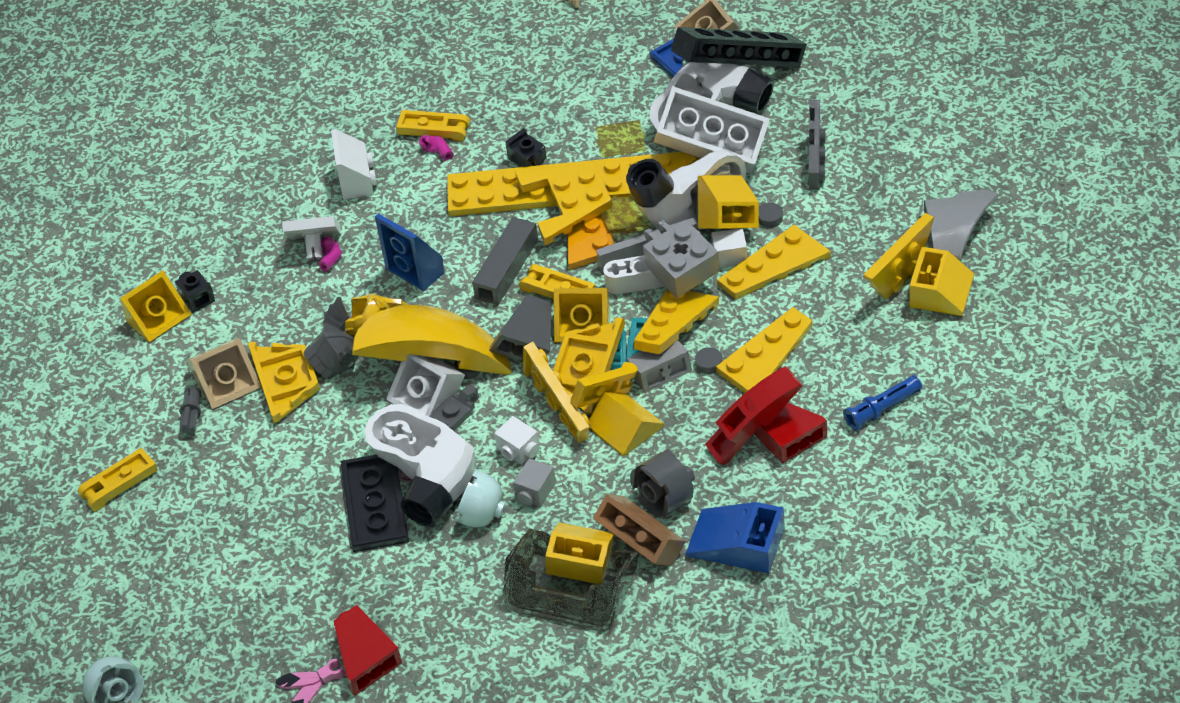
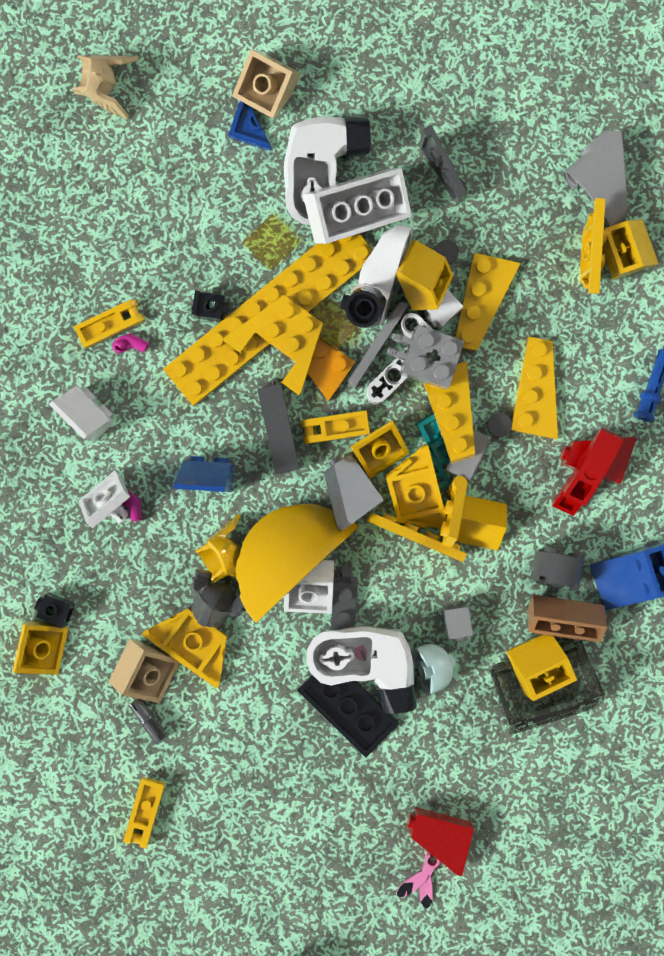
camera: 40 degrees left, 40 degrees up
(517, 441) = (417, 593): white brick -> none
(738, 47) = (323, 106): black brick -> none

